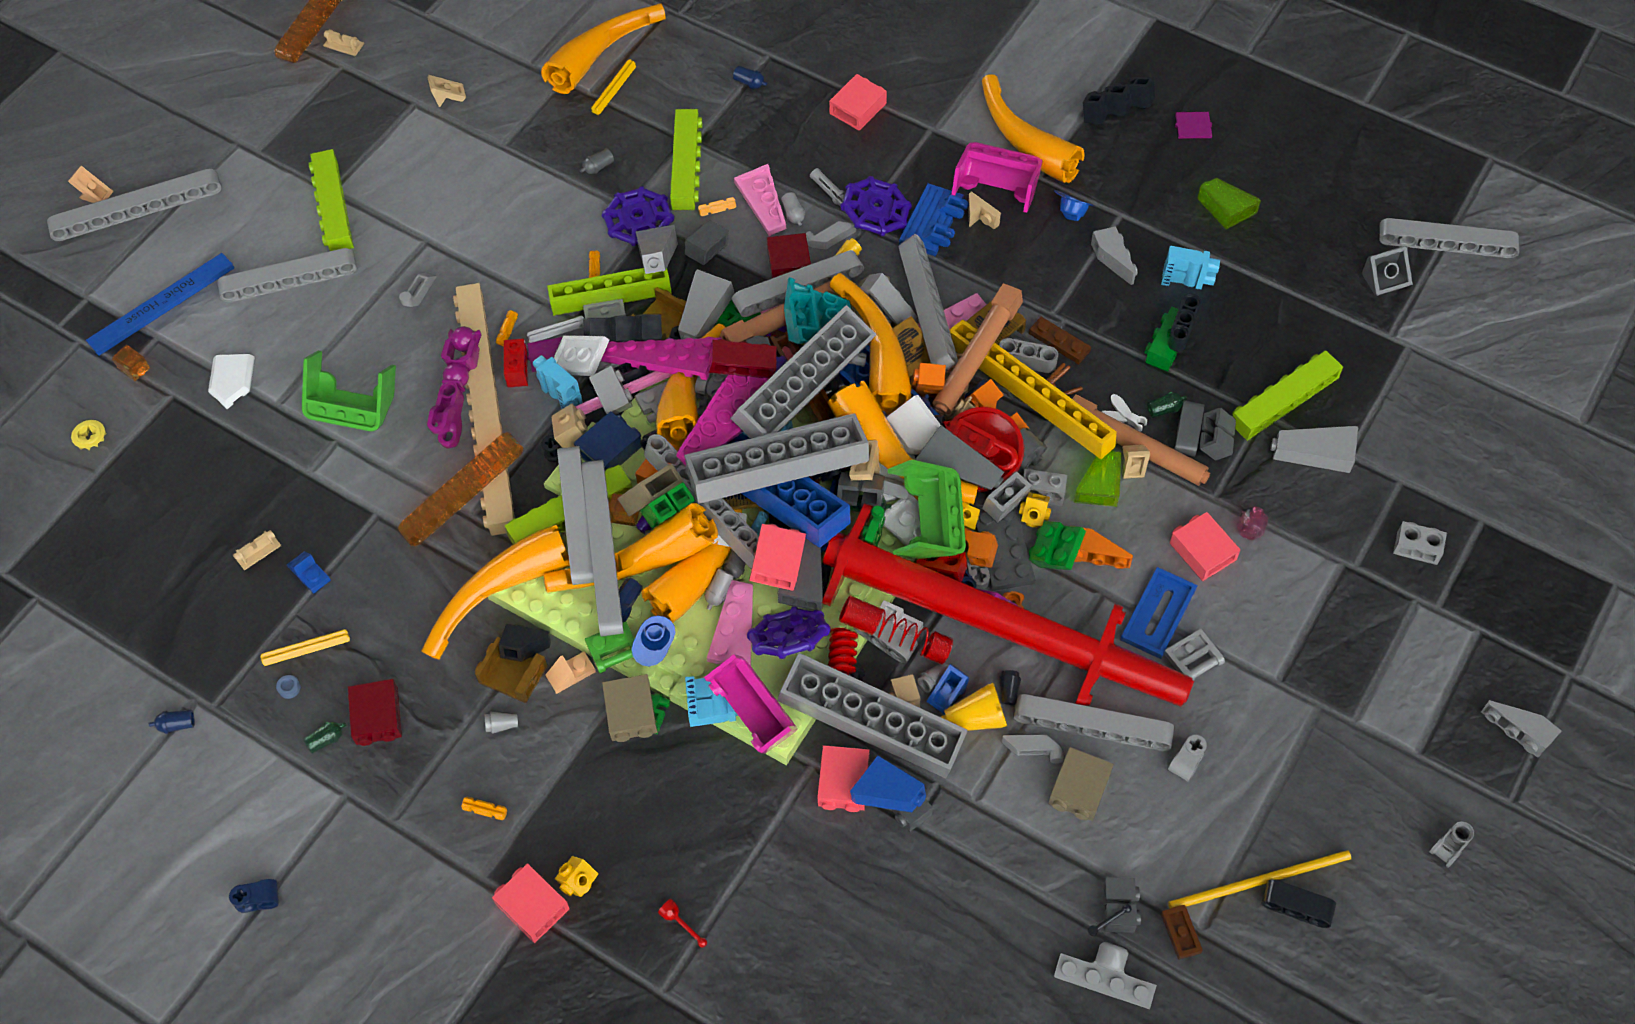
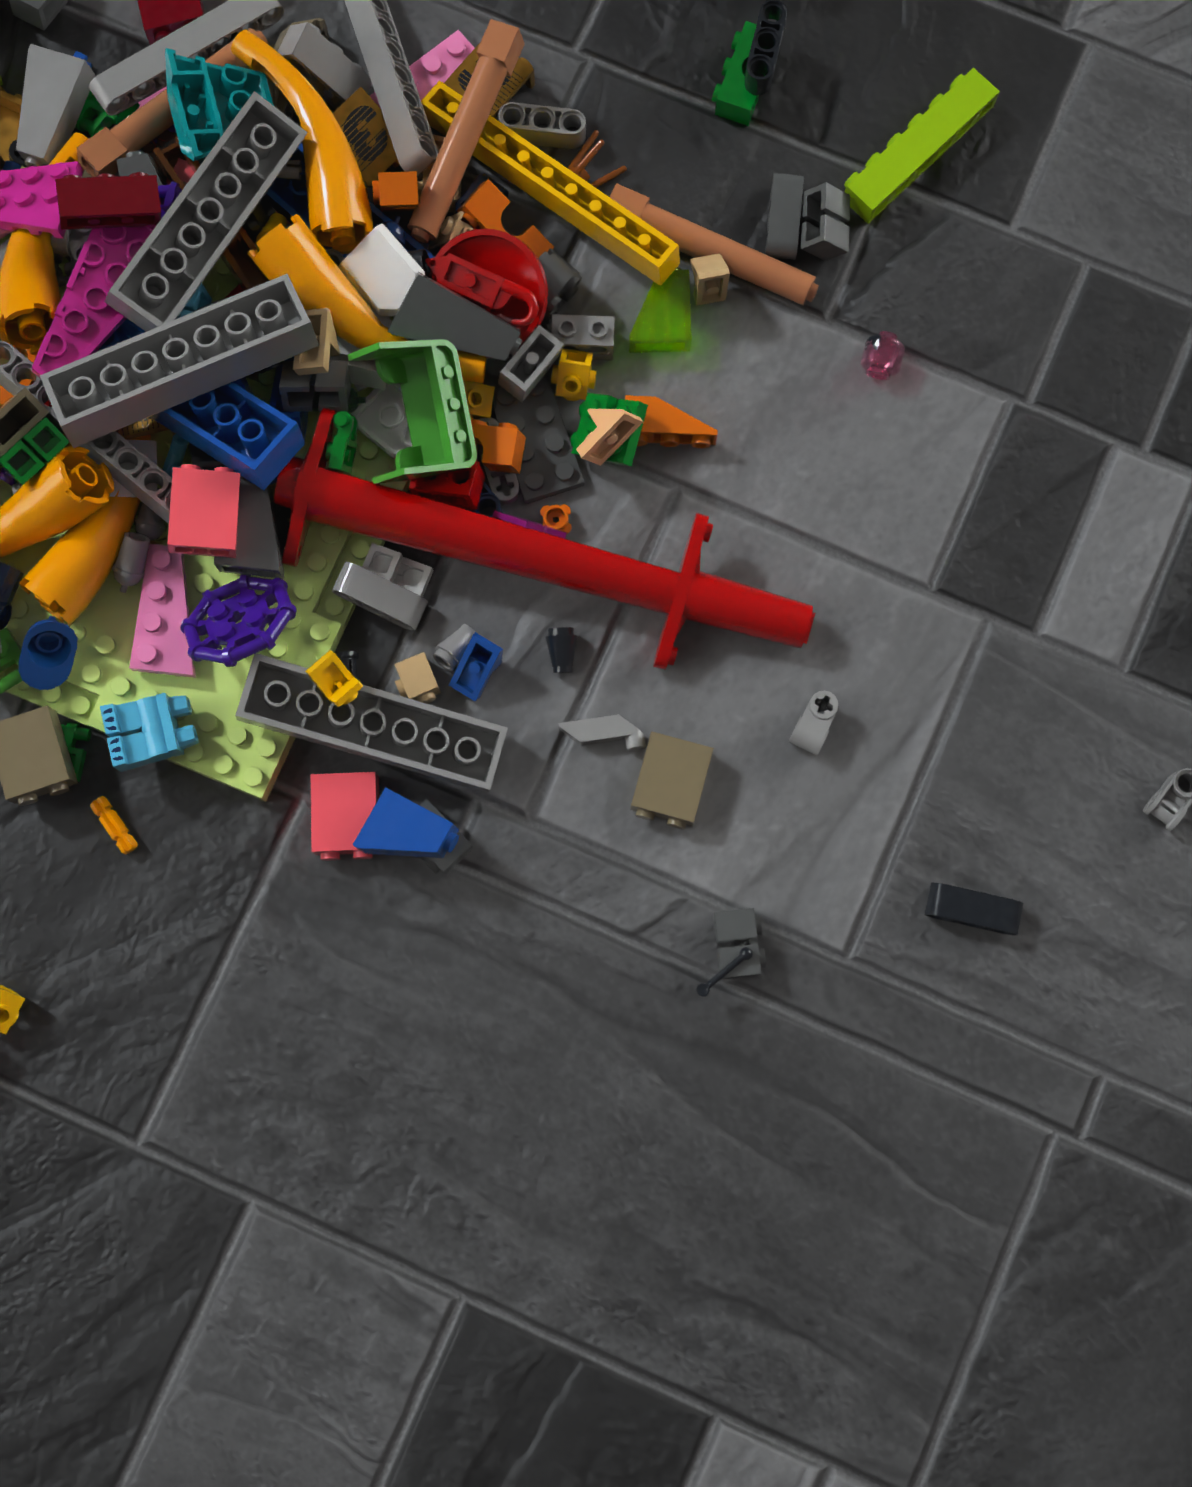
camera: 10 degrees left, 20 degrees up
(670, 911) = (133, 1034): red hinge -> none
(677, 766) = (114, 825): none -> light orange axle
(751, 702) = (202, 734): dark pink windscreen -> none
(842, 650) = (318, 631): red piece -> none
(852, 676) = (334, 679): none -> yellow bracket
(867, 618) = (348, 582): red piece -> none
(978, 710) = (519, 694): yellow cone -> none
(1060, 339) = (587, 93): reddish brown plate -> none
(1061, 541) = (612, 430): none -> light nougat slope
(1094, 722) = (682, 686): light grey beam -> none
(1106, 975) = (726, 1043): light grey plate -> none
(1124, 414) = (688, 202): white piece -> none
(1135, 630) = (791, 477): blue piece -> none
(1166, 404) = (748, 182): clear green piece -> none
(1181, 932) = (821, 969): reddish brown plate -> none
(1190, 650) = (807, 561): light grey plate -> none
(1204, 546) = (817, 399): coral brick -> none
(1261, 879) = (920, 881): yellow piece -> none
(1318, 447) = (969, 224): light grey slope -> none
(1419, 546) = (1117, 364): light grey brick -> none

